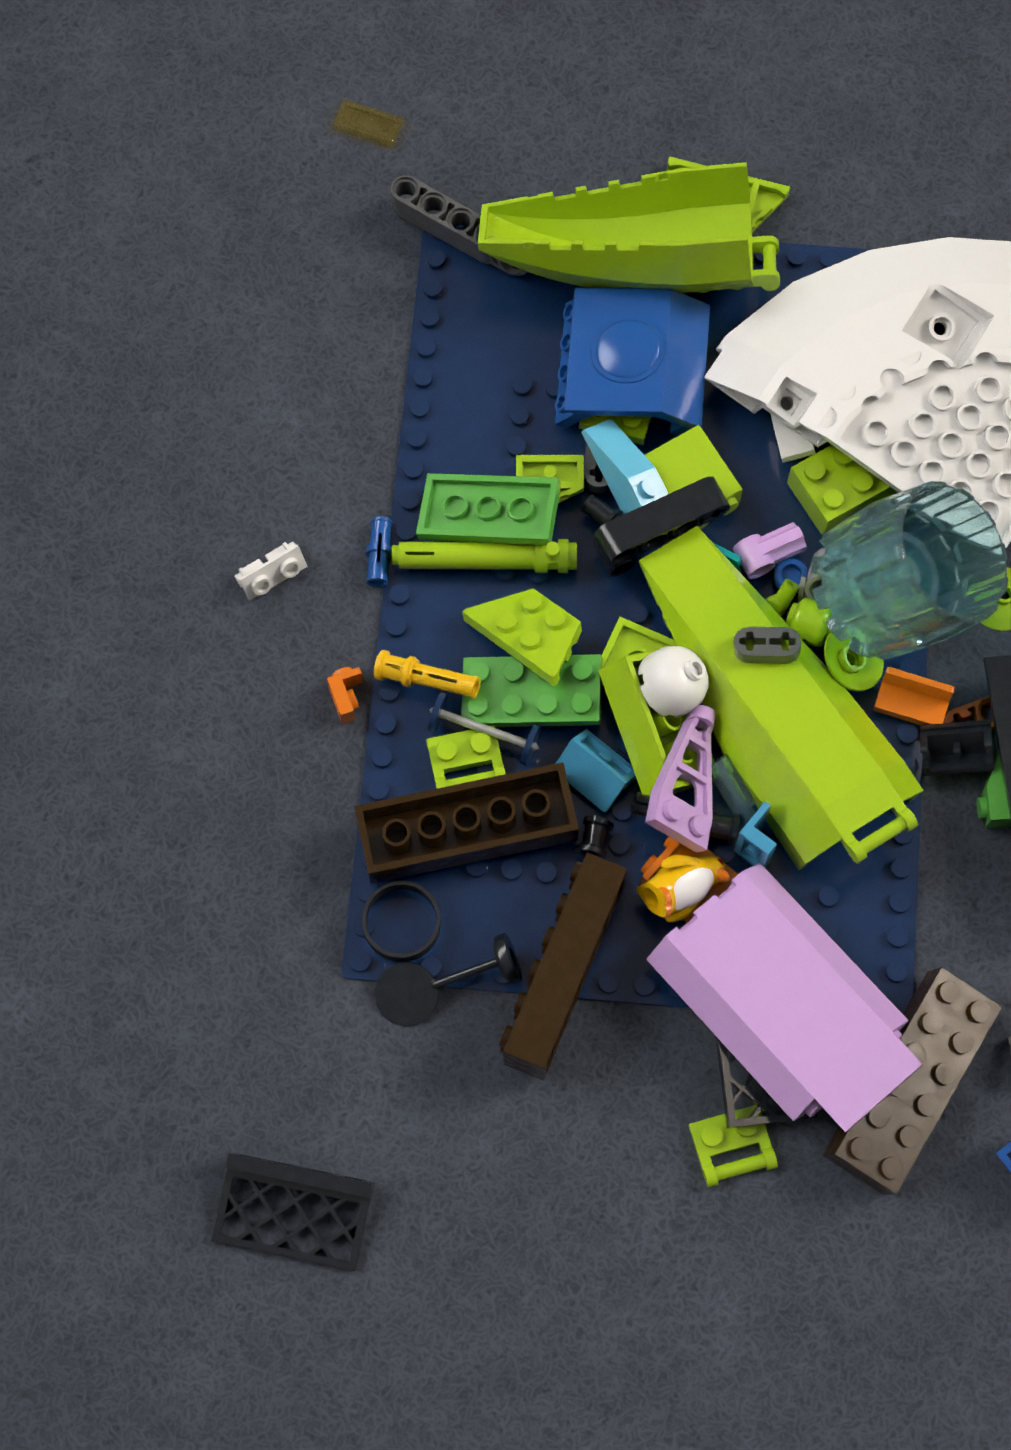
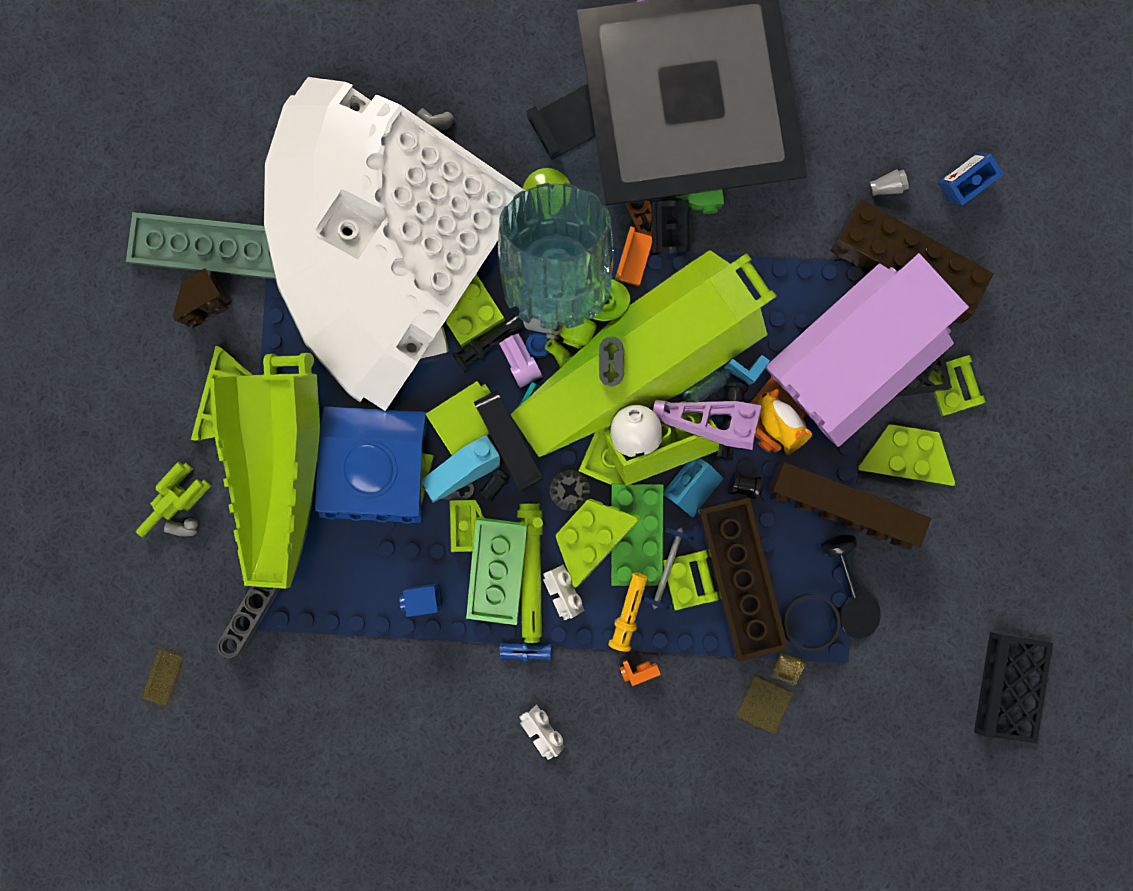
camera: 95 degrees left, 15 degrees up
(289, 861) = (764, 704): none -> clear yellow piece
(337, 892) = (788, 669): none -> clear yellow tile
(450, 601) = (569, 602): none -> white hinge
(454, 414) = (421, 600): none -> blue brick
(554, 149) = (189, 527): none -> light grey arm
(596, 135) = (173, 497): none -> lime plant
(596, 624) = (557, 490): none -> dark grey gear
(632, 1074) = (909, 455): none -> lime wing
(782, 496) = (478, 348): none -> black pin
(856, 165) = (200, 292): none -> dark brown slope
(920, 167) = (199, 245): none -> sand green plate

